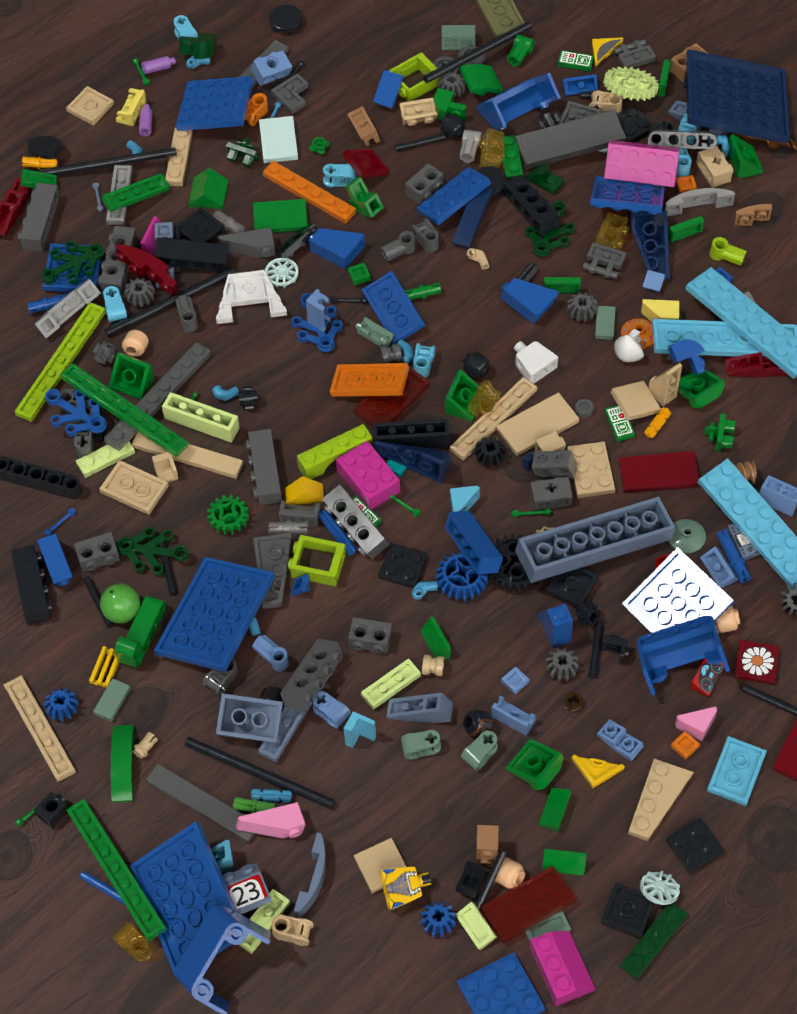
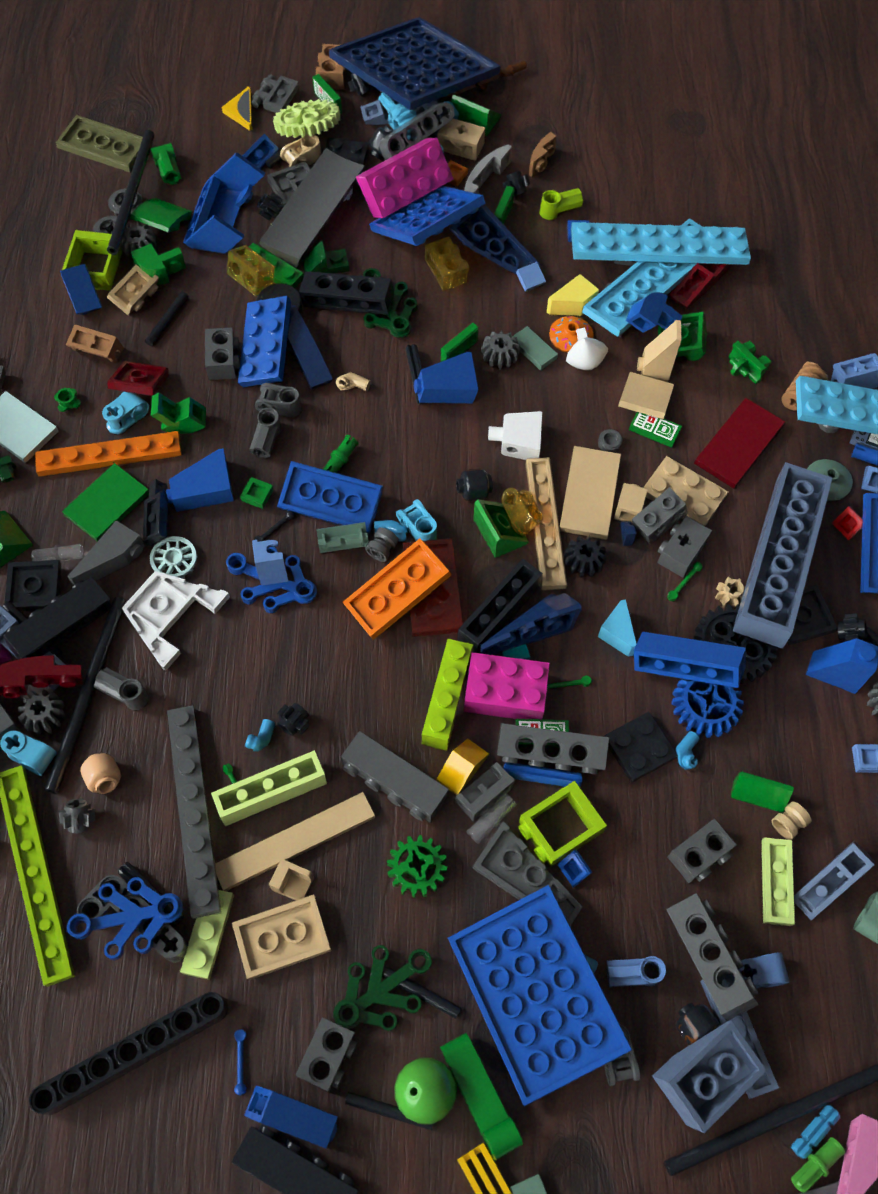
camera: 50 degrees left, 5 degrees up
(124, 410) = (178, 862): green tile -> none
(131, 376) = (138, 815): green slope -> none
(357, 726) = (816, 970): medium azure panel -> none
(452, 126) = (184, 278): black head -> none
(457, 36) = (91, 193): sand green hinge -> none
(470, 143) = (218, 279): light grey piece -> none
(575, 60) = (228, 137): tile -> none
(605, 256) = (465, 287): dark grey plate -> none
(657, 423) = (685, 399): light orange axle -> none
(713, 219) = (517, 181): none -> black gear

